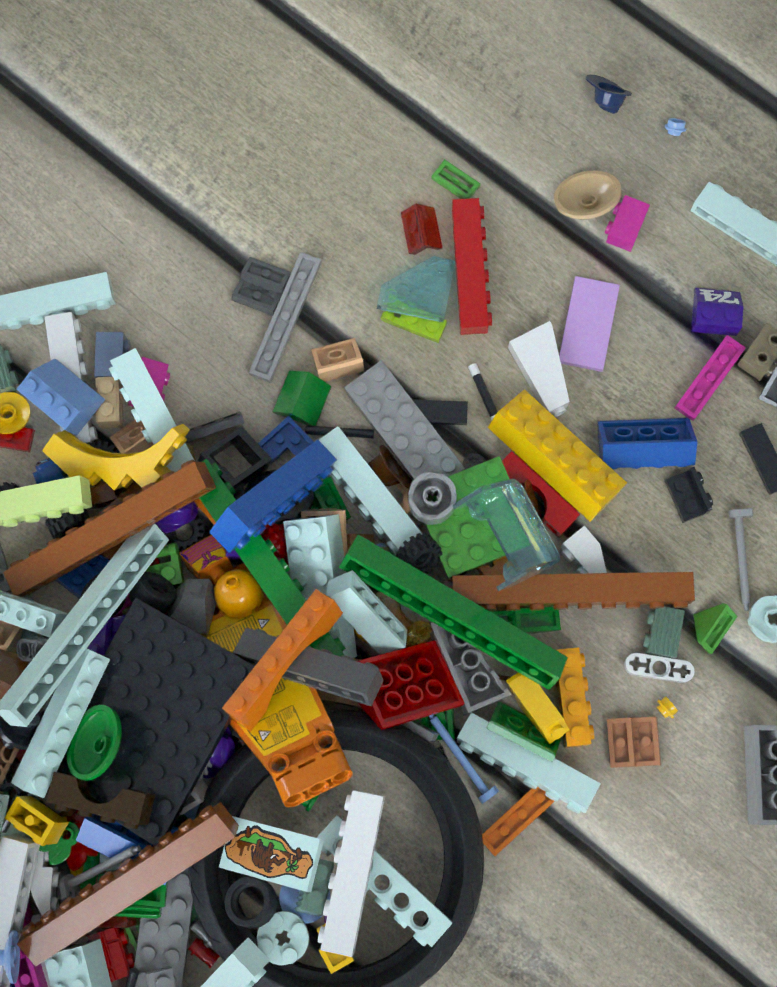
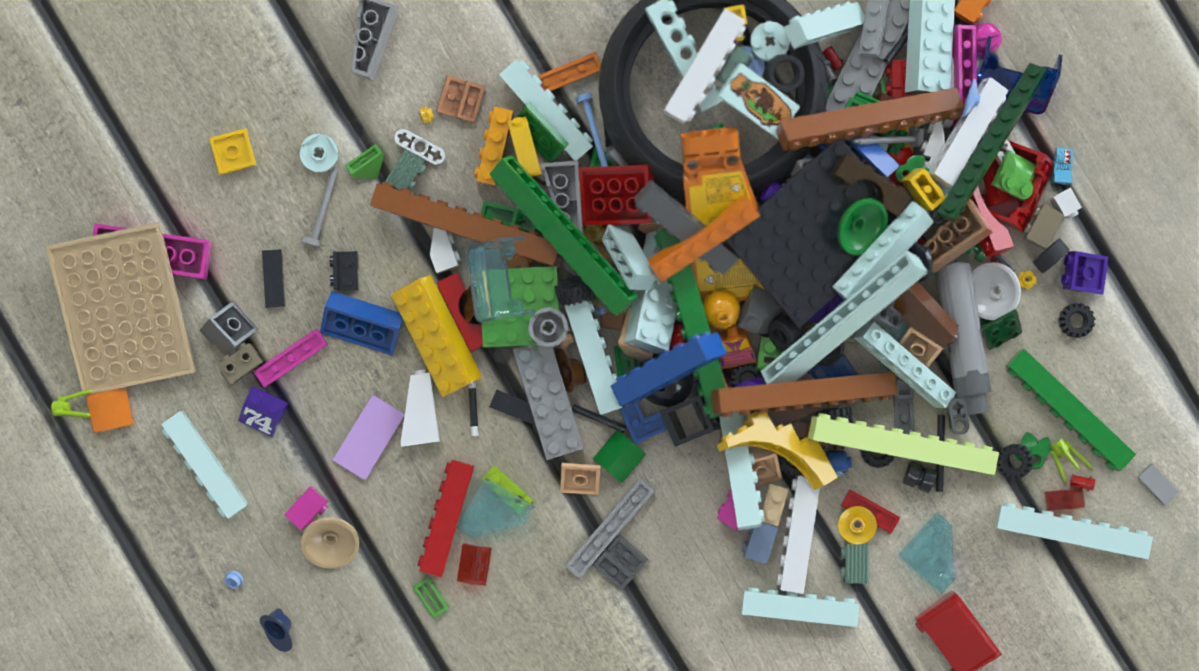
camera: 170 degrees left, 10 degrees up
(61, 395) = (809, 518): medium blue slope -> none
(214, 426) = (698, 456): black tile -> none

